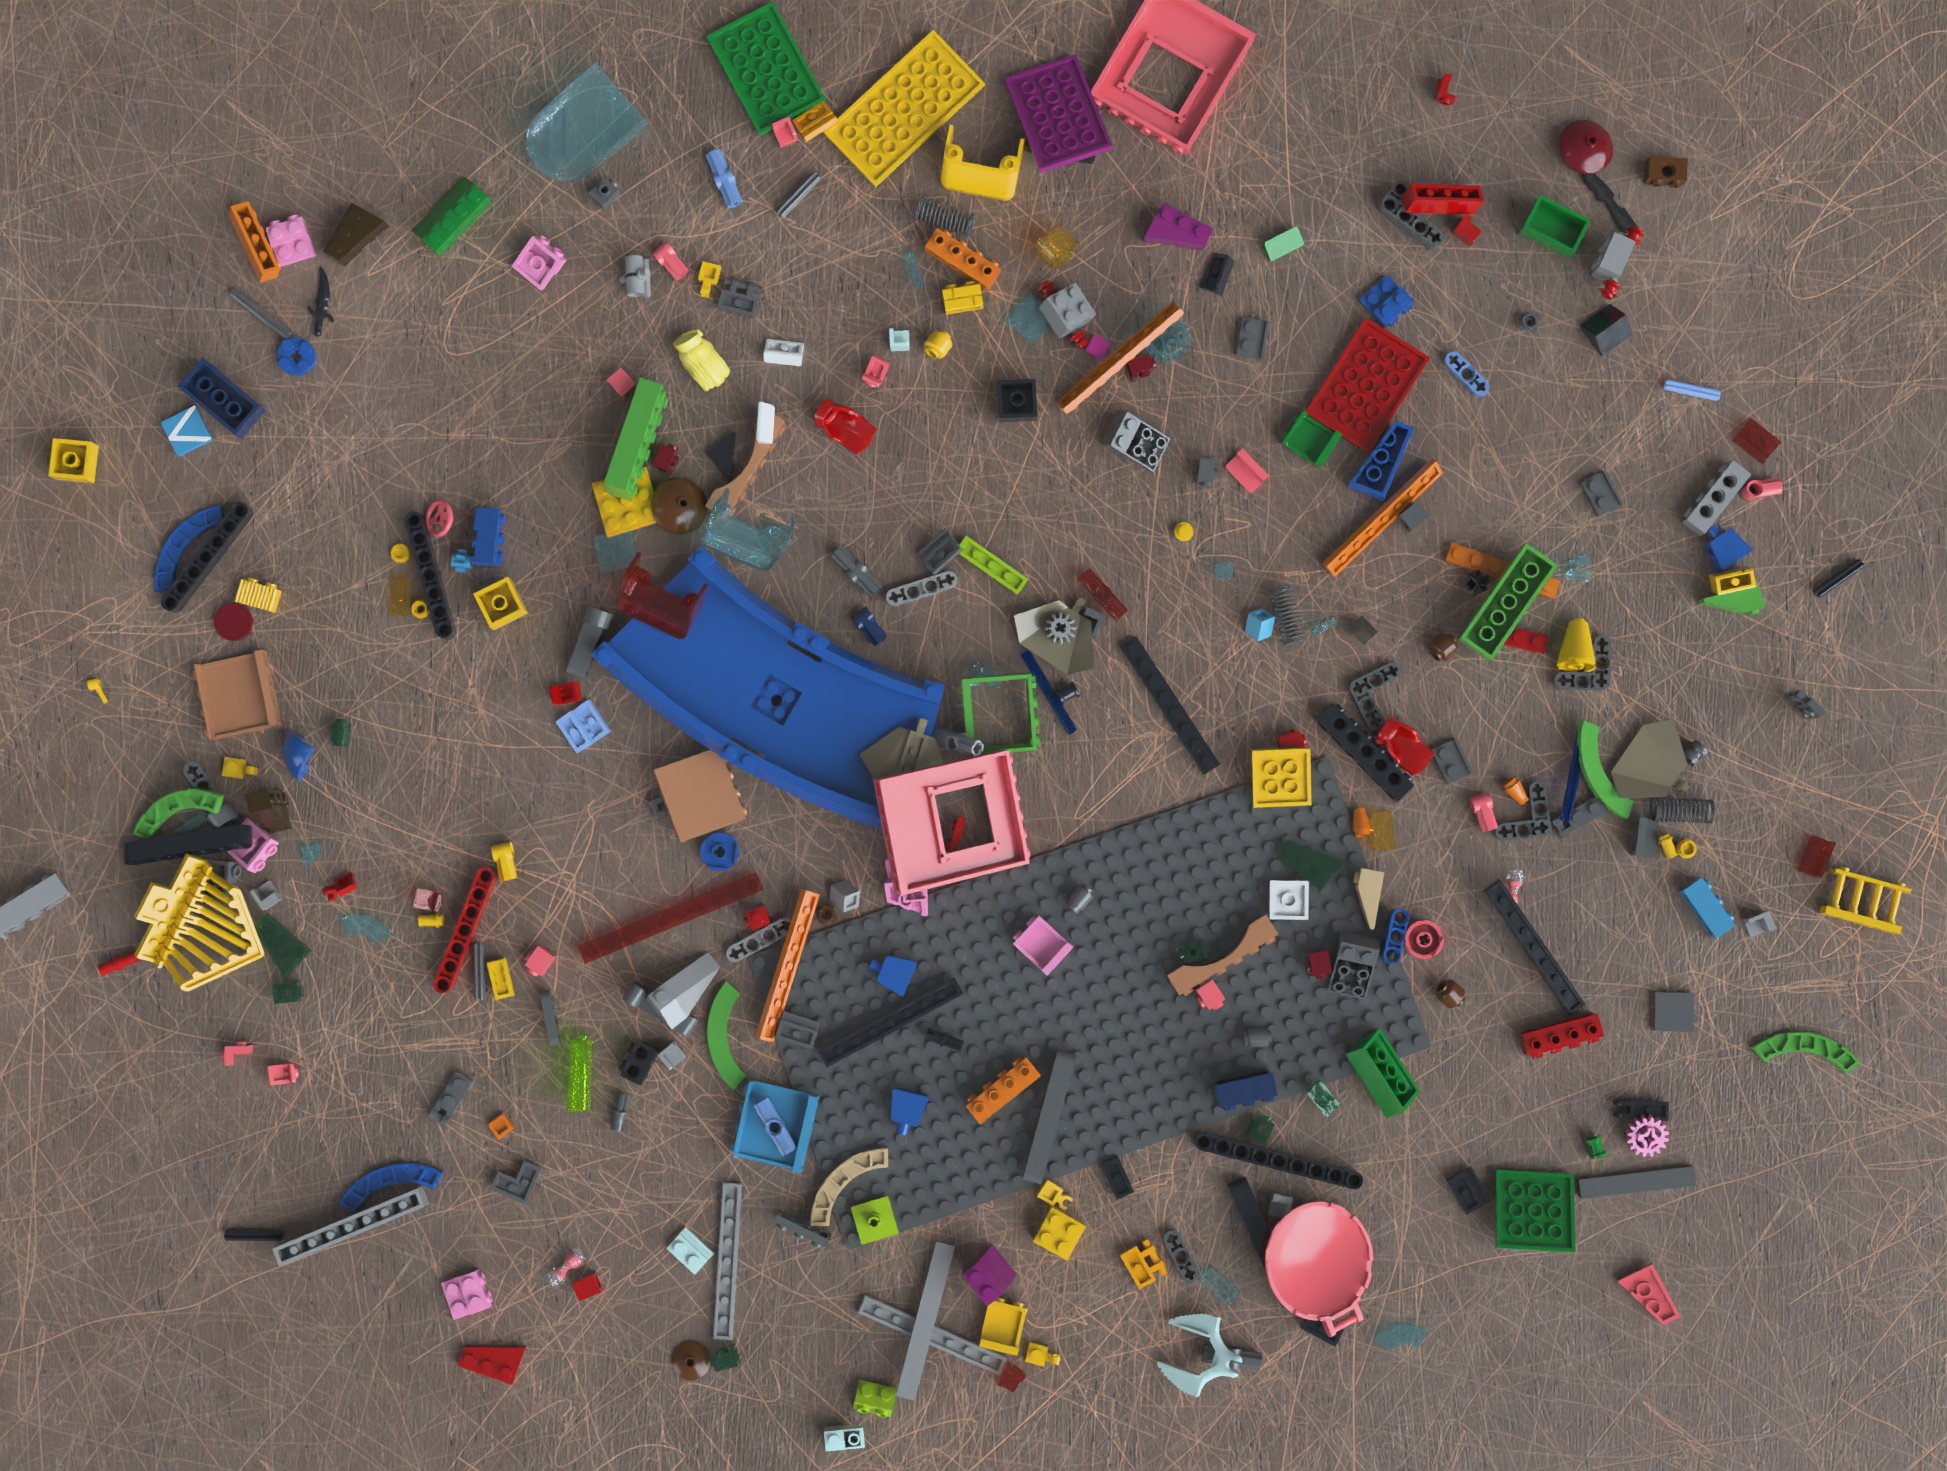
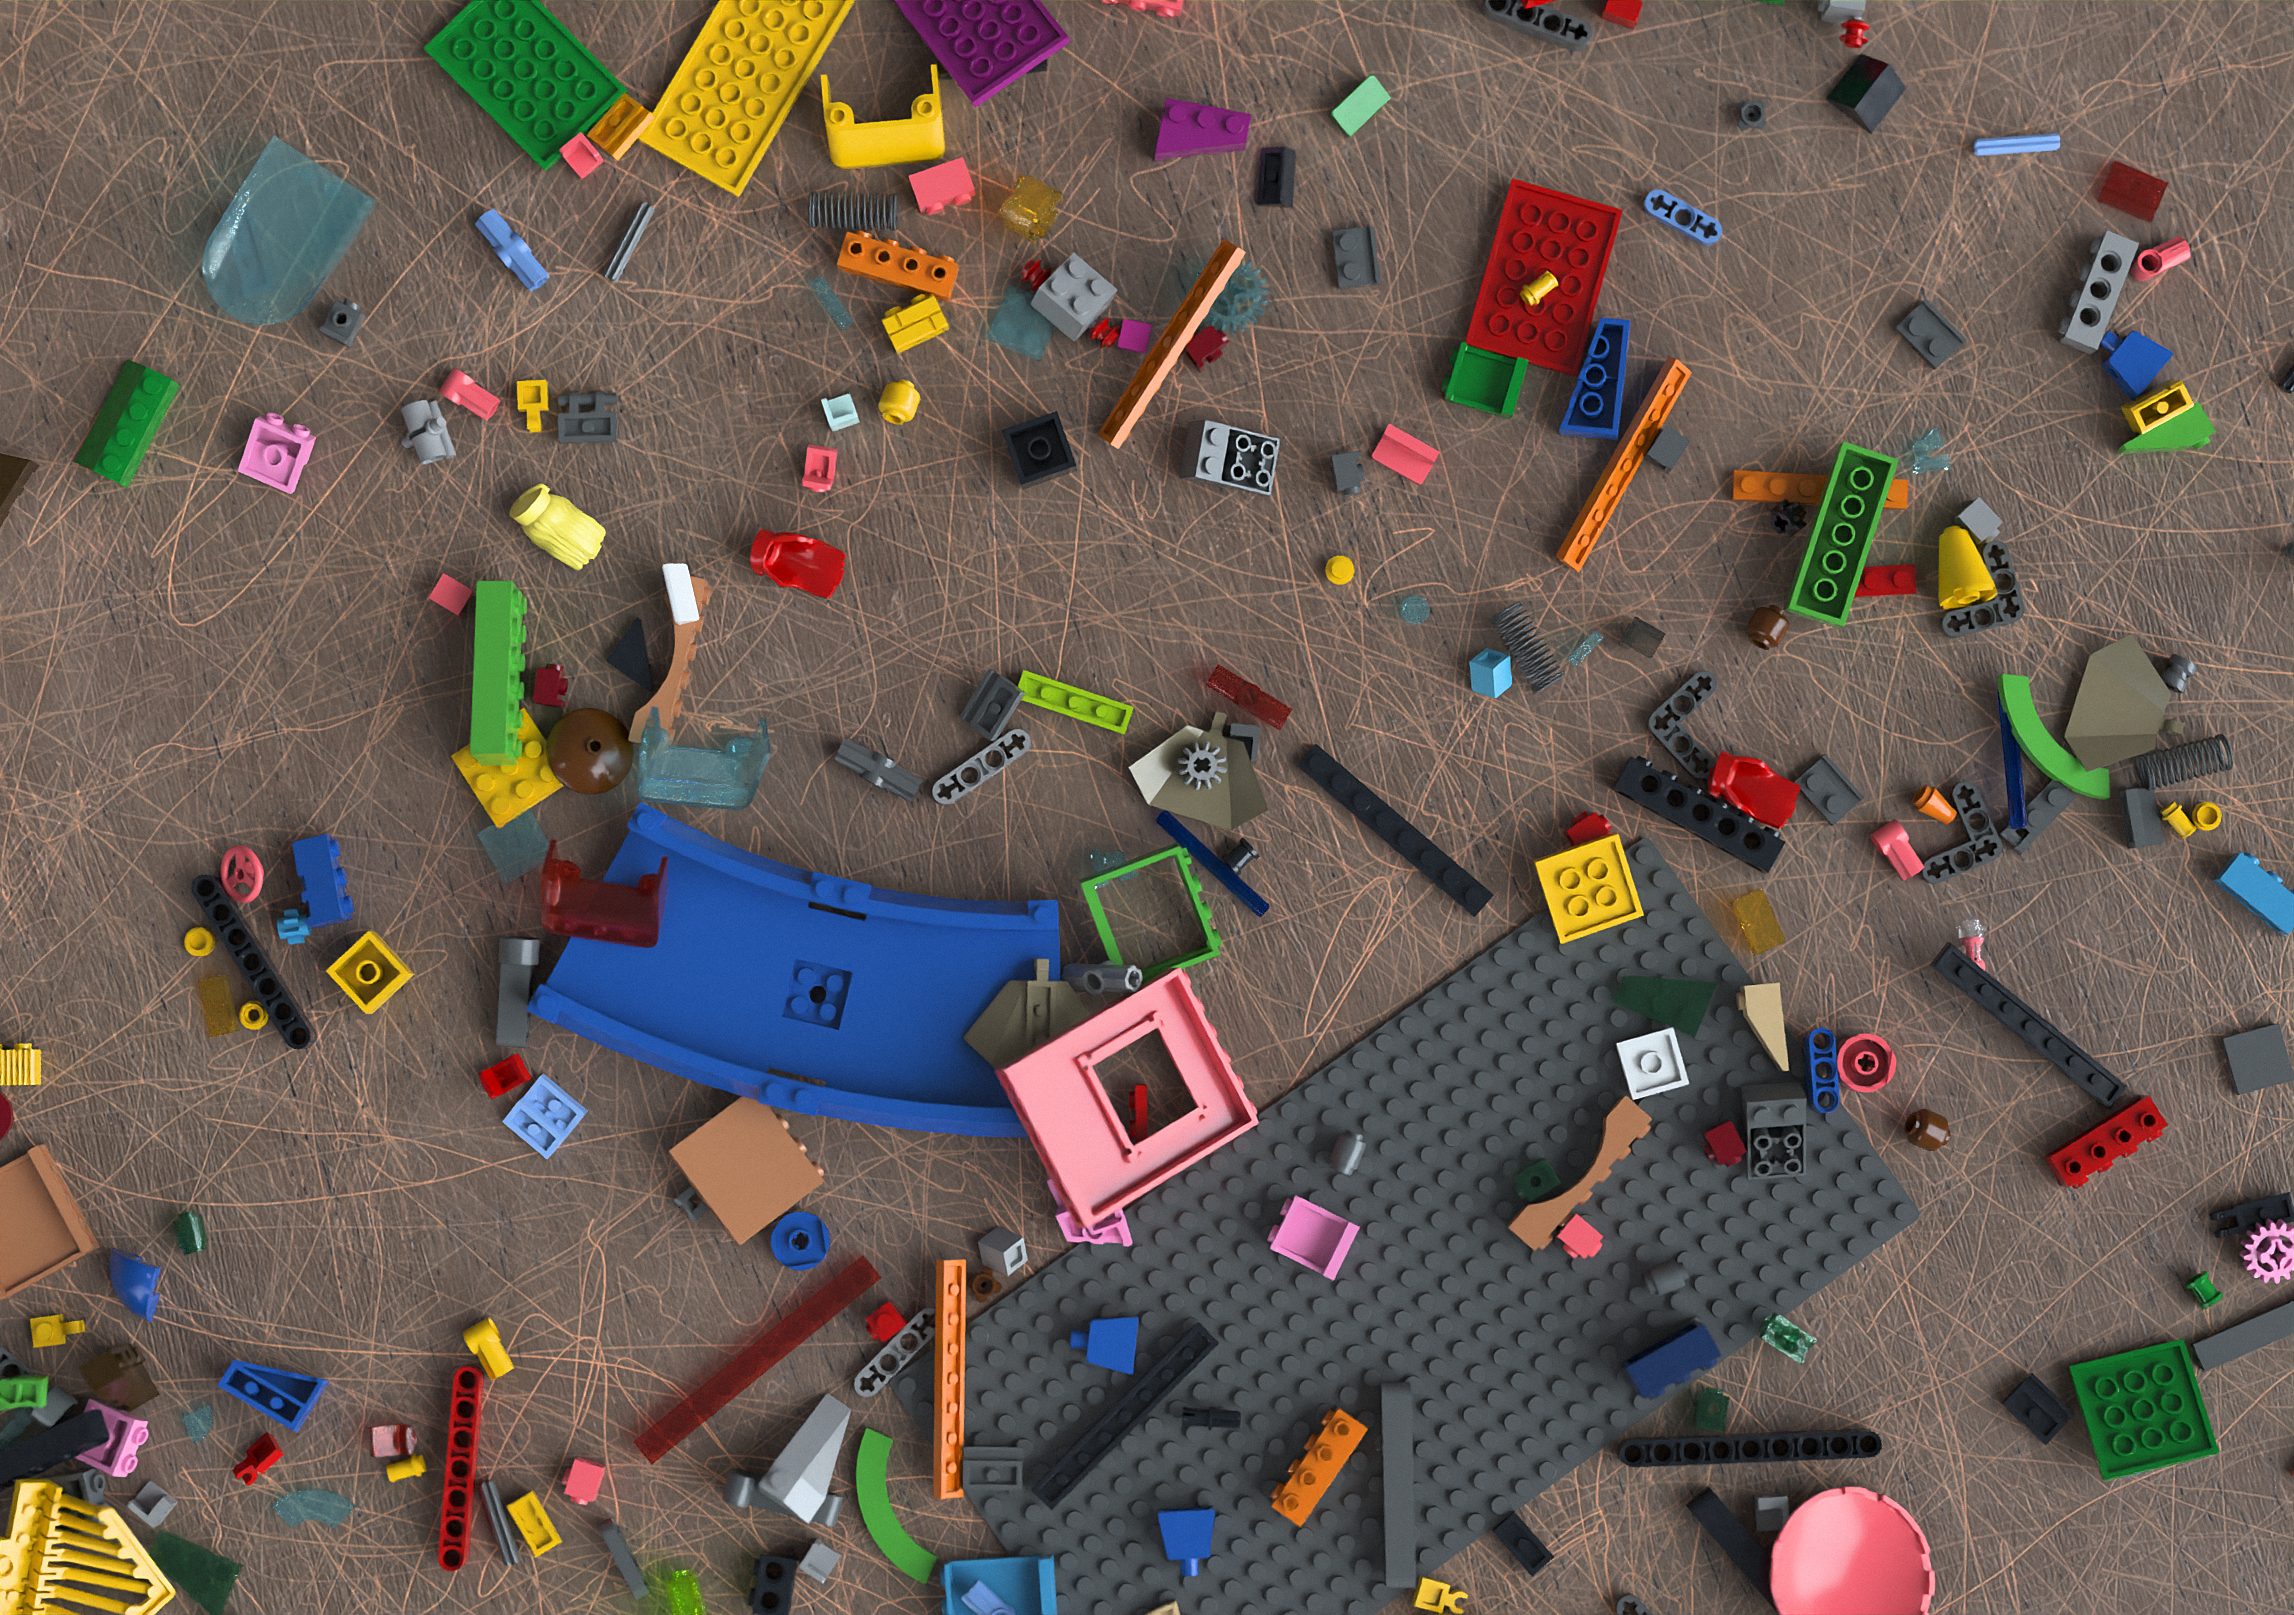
camera: 20 degrees left, 0 degrees up
(362, 847) = (275, 1392): none -> blue wedge
(783, 352) = (675, 479): white slope -> none
(866, 622) = (916, 842): dark blue piece -> none
(1005, 217) = (942, 186): none -> coral brick
(1361, 391) = (1538, 288): none -> yellow pin
(1361, 824) = (1724, 921): orange cone -> none
(1383, 1073) = (1864, 1275): green slope -> none
(1386, 302) = (1535, 146): blue plate -> none
(1597, 620) = (1979, 521): none -> light grey brick

